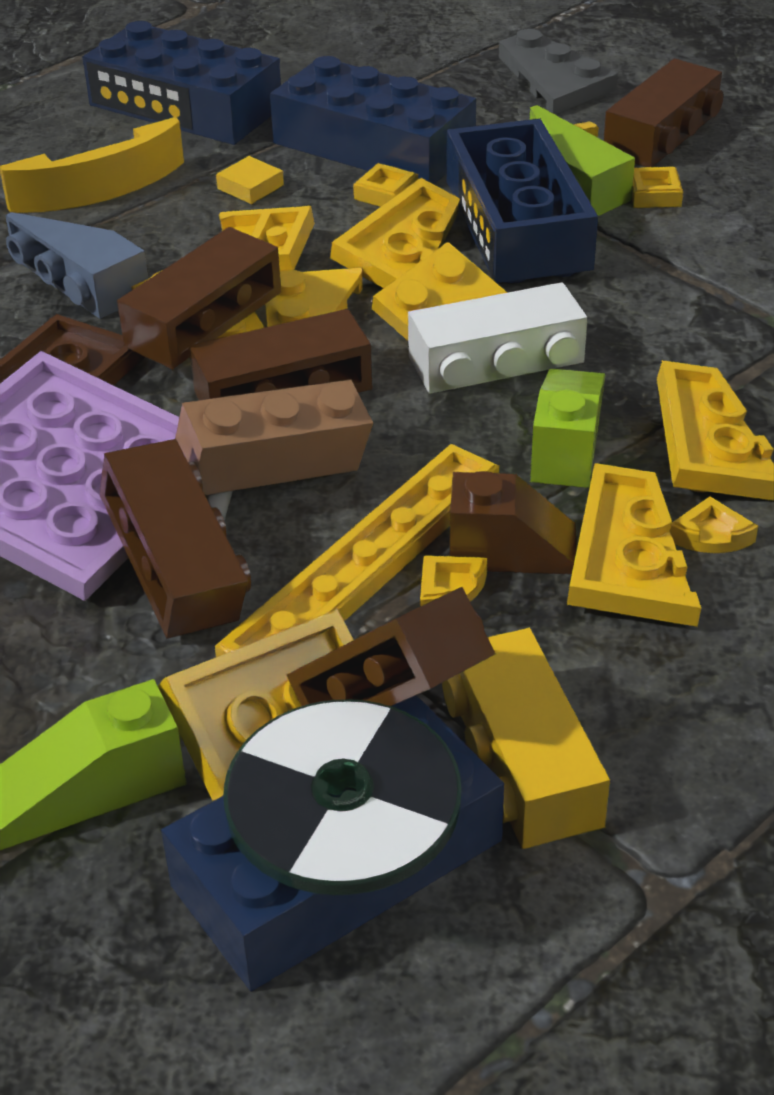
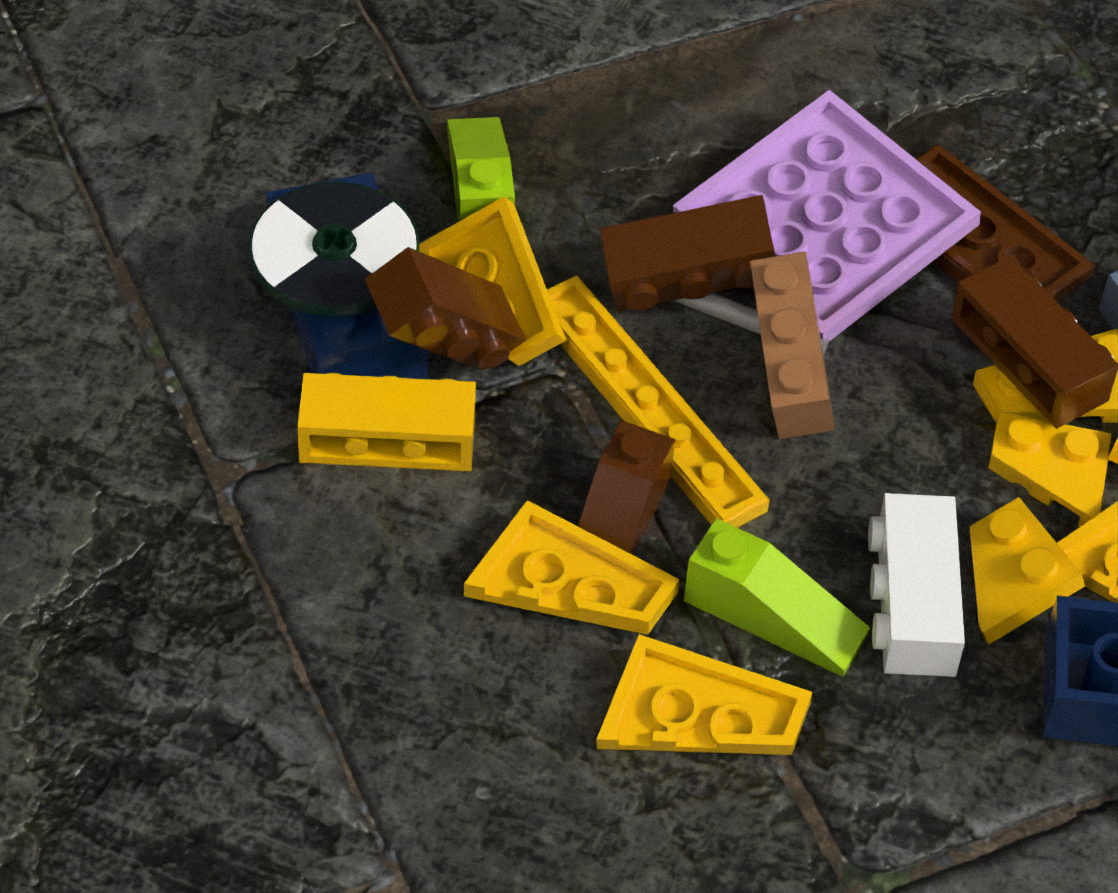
camera: 105 degrees right, 10 degrees up
(283, 357) = (932, 402): reddish brown brick -> none
(449, 573) = (586, 444): yellow tile -> none
(713, 529) = (579, 659): yellow tile -> none

